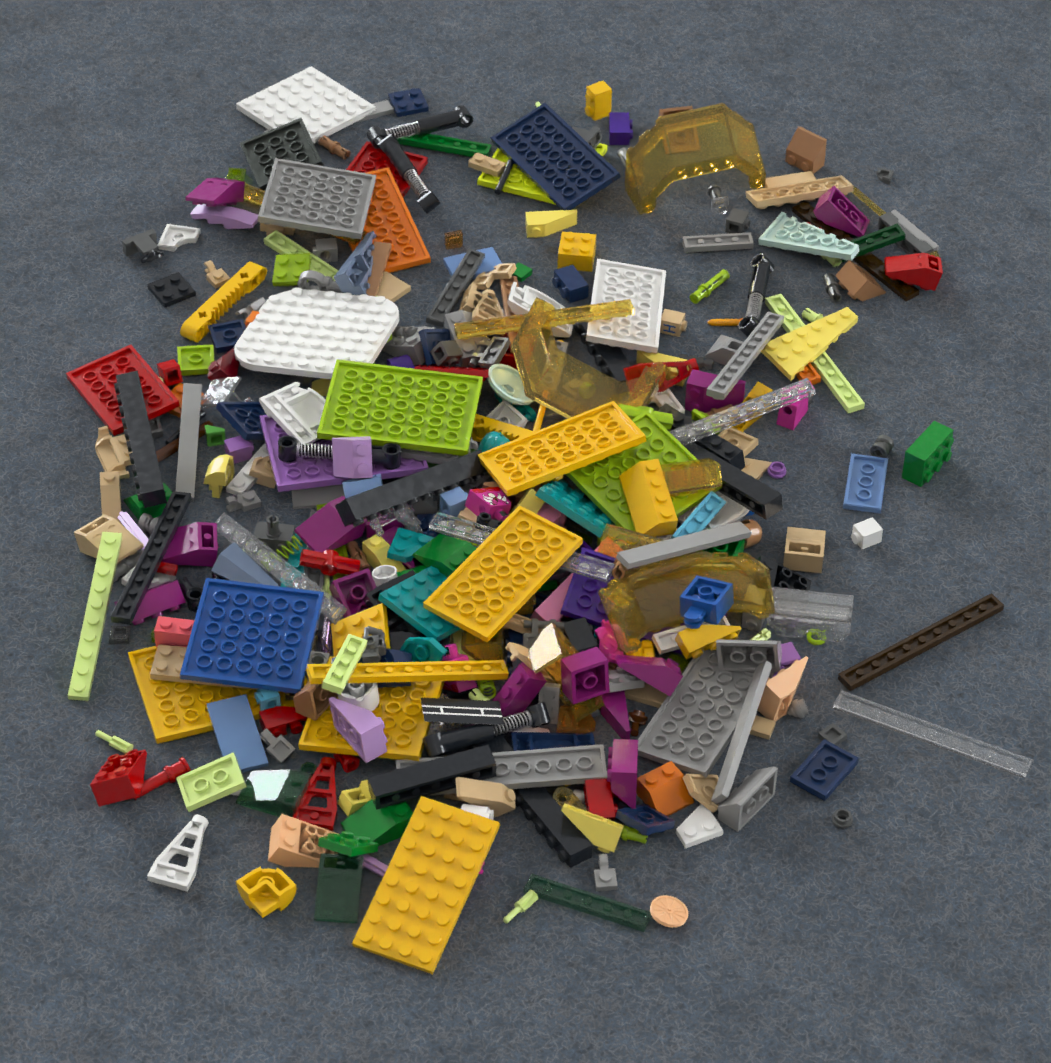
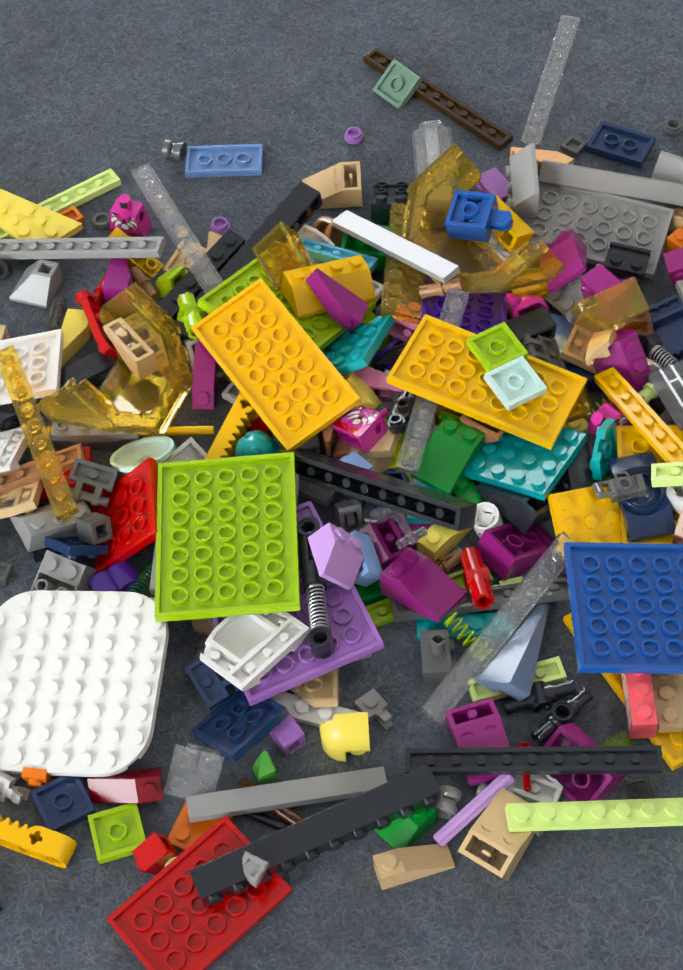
camera: 95 degrees left, 10 degrees up
(113, 452) = (324, 883): tan plate -> none
(124, 398) = (254, 868): none -> light grey tile
(487, 581) = (515, 383): none -> light aqua plate
(527, 574) = (496, 347): none -> lime plate
(616, 383) = (132, 348): none -> tan slope
(620, 497) = (337, 300): none -> magenta slope
(650, 727) = (627, 260): none -> black plate
(866, 533) = (302, 147): white brick -> none
(879, 574) = (353, 135): none -> medium lavender plate
(928, 454) = (187, 109): green brick -> none
(940, 609) = (397, 84): none -> sand green plate

